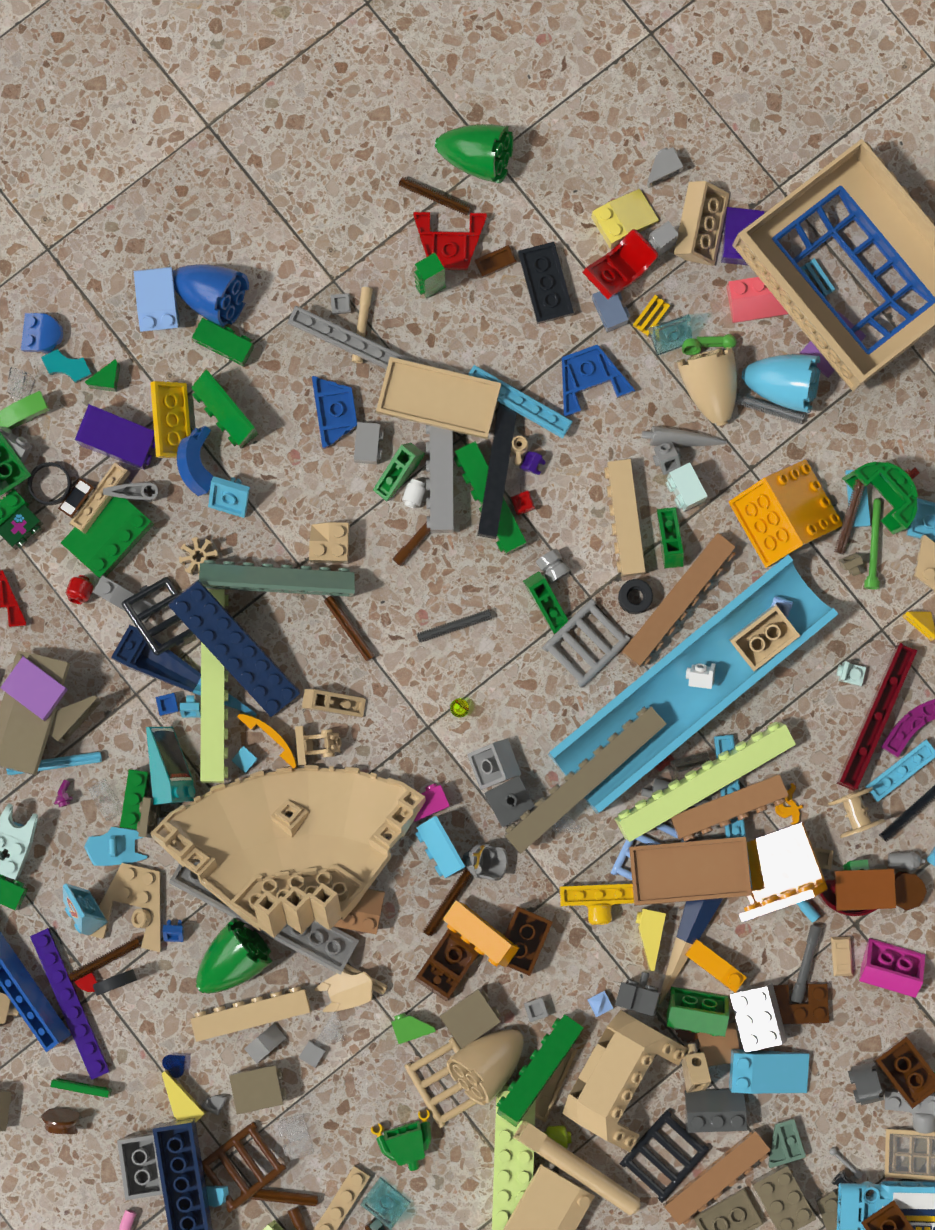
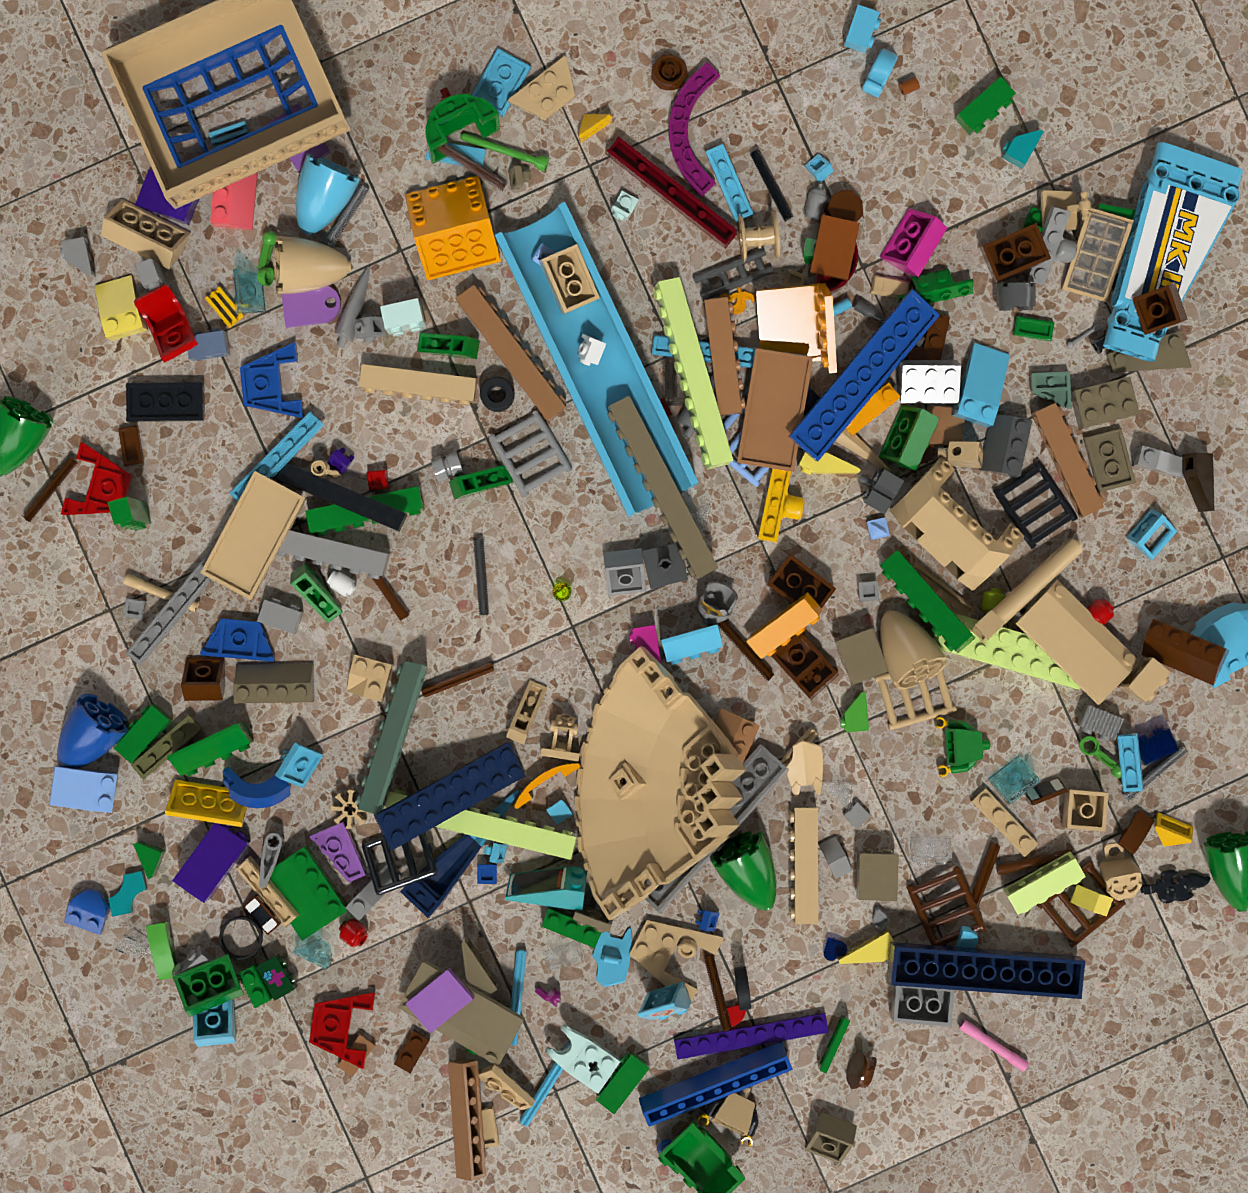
camera: 80 degrees left, 5 degrees up
(50, 552) = (308, 952): none -> clear light blue slope
(157, 557) = (340, 848): none -> medium lavender wing
(217, 367) = (165, 746): none -> olive plate
(289, 386) = (203, 679): none -> reddish brown slope
(301, 453) = (274, 683): none -> dark tan slope
(672, 396) = (310, 307): none -> medium lavender tile
(747, 950) = (864, 375): none -> blue plate
(800, 795) = (727, 285): none -> dark grey bar
(839, 1110) = (1033, 328): none -> green tile
(852, 1000) = (939, 287): none -> green bracket

